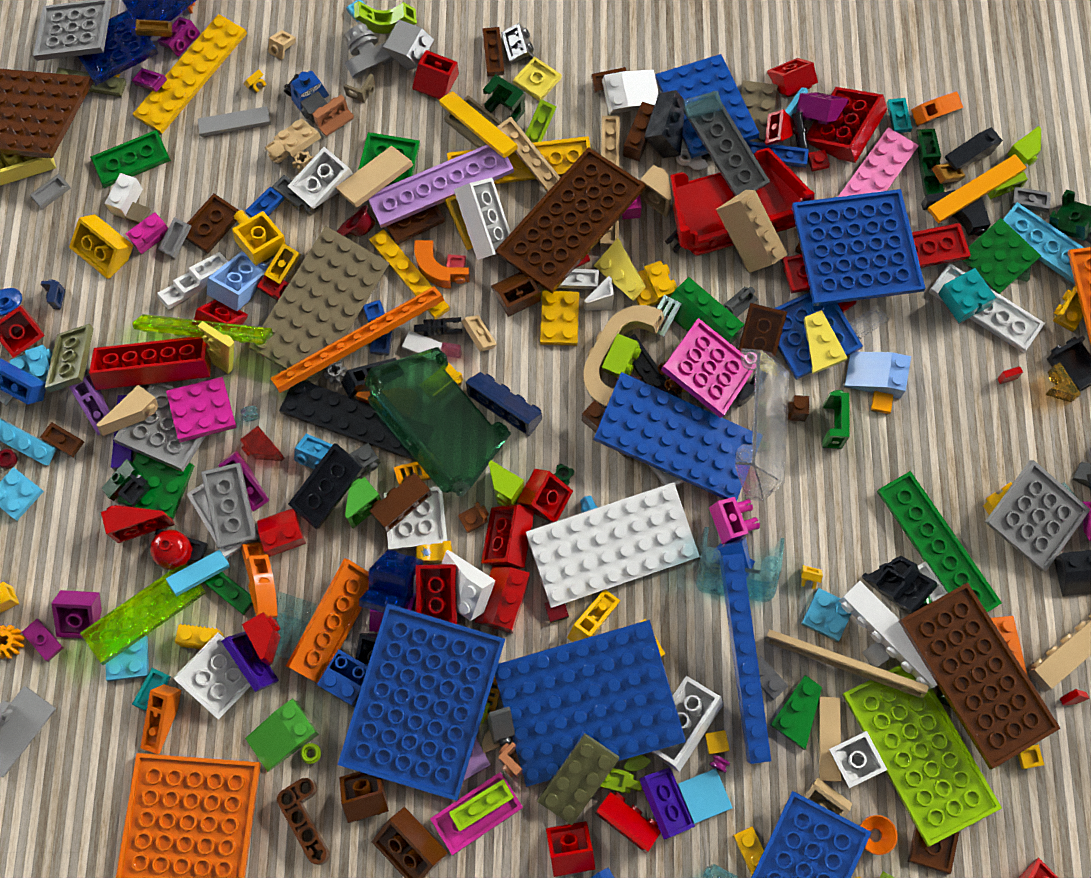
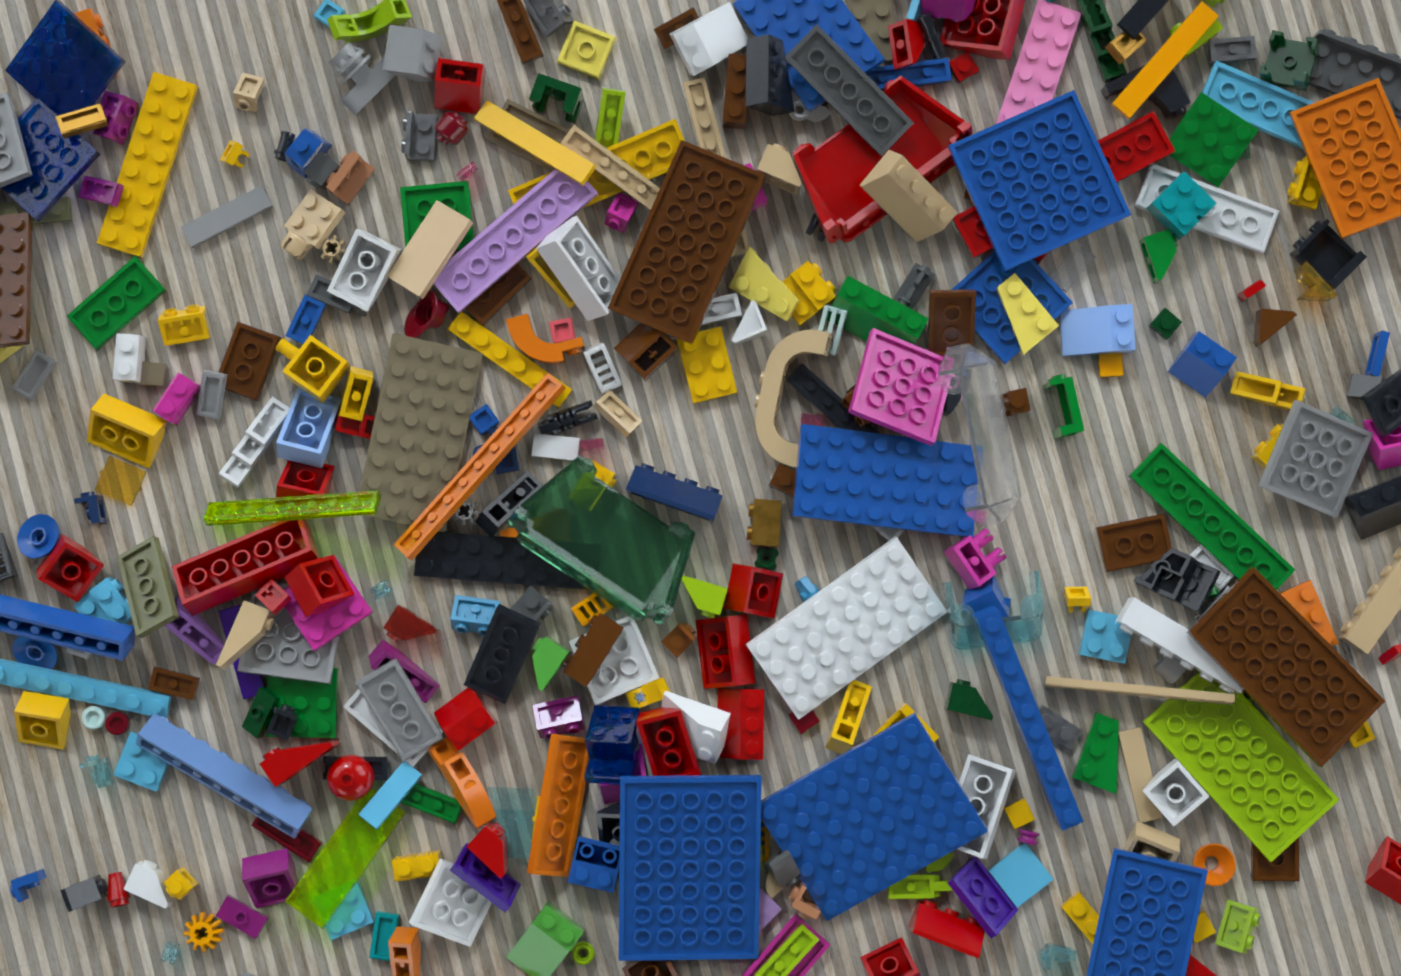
camera: 15 degrees left, 15 degrees up
(72, 520) = (224, 775): none -> medium blue brick
(82, 282) = (120, 480): none -> clear yellow piece
(104, 582) = (303, 845): none -> dark red tile
(162, 389) = (273, 596): none -> red bracket
(172, 185) = (183, 325): none -> yellow bracket
(200, 390) = (319, 585): none -> red slope
(220, 347) = (322, 529): light yellow wing -> none
(356, 549) = (558, 717): none -> magenta bracket
(366, 90) = (379, 129): dark tan bracket -> none
(394, 104) = (420, 137): none -> flat silver bracket
(420, 103) = (451, 128): none -> dark red head
(422, 134) = (467, 171): none -> clear pink tile
(477, 283) = (595, 349): none -> white slope
(526, 192) = (620, 212): none -> dark pink bracket
(570, 445) = (765, 522): none -> pearl gold brick
(578, 779) = (882, 900): olive plate -> none
(621, 356) = (795, 400): lime brick -> none
(697, 633) = (966, 700): none -> dark green slope
(702, 104) = (807, 48): clear light blue tile -> none
(868, 544) = (1133, 542): none -> reddish brown tile
(934, 383) = (1165, 323): none -> dark green plate
(940, 326) = (1159, 252): none -> green slope
(957, 419) = (1202, 364): none -> blue slope
(1004, 453) = (1266, 390): none -> yellow slope
(1020, 403) = (1269, 322): none -> reddish brown slope

